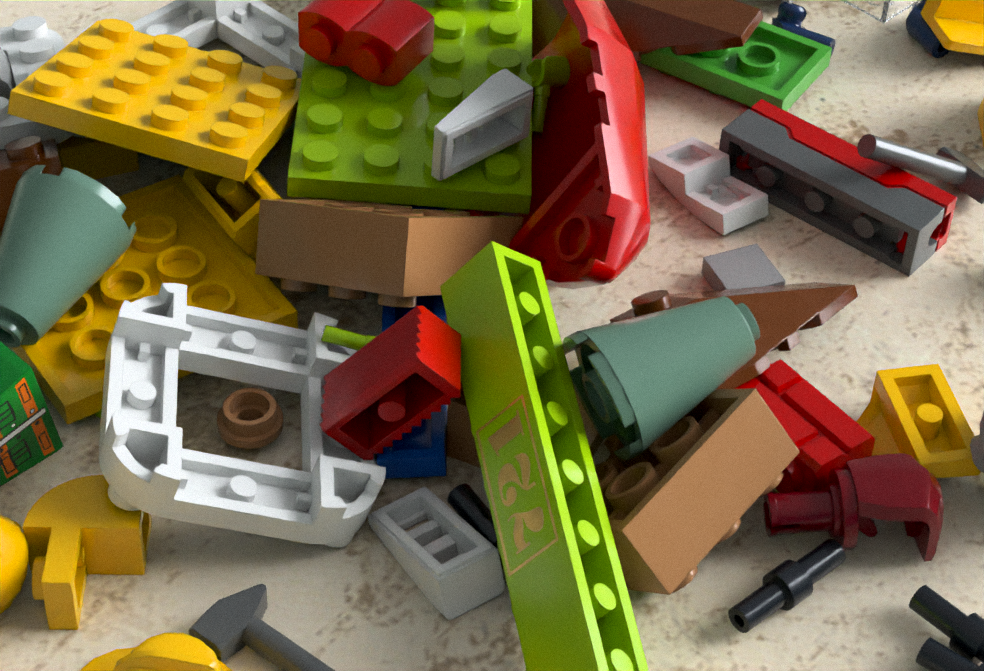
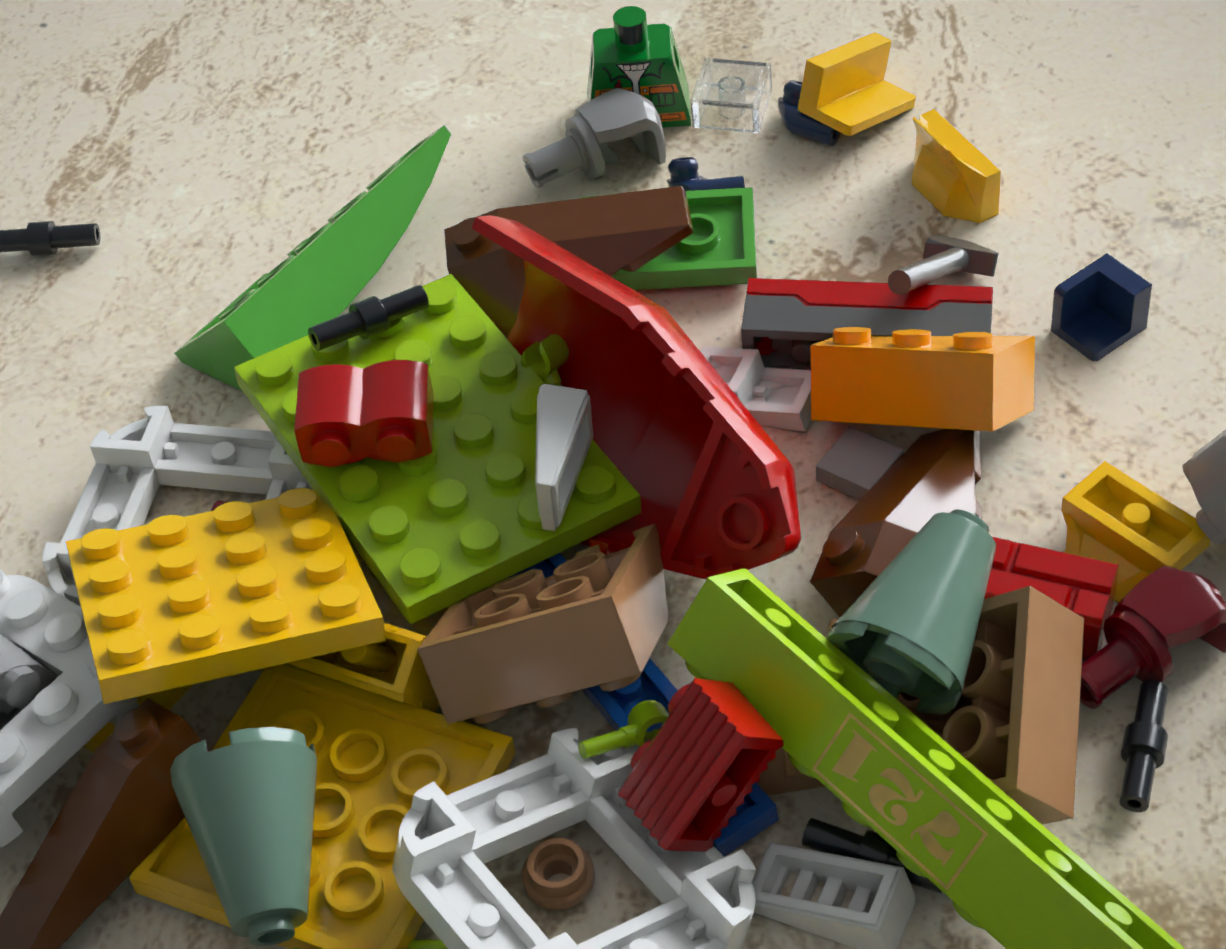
camera: 25 degrees left, 5 degrees up
(840, 235) = (922, 379): none -> light orange wedge

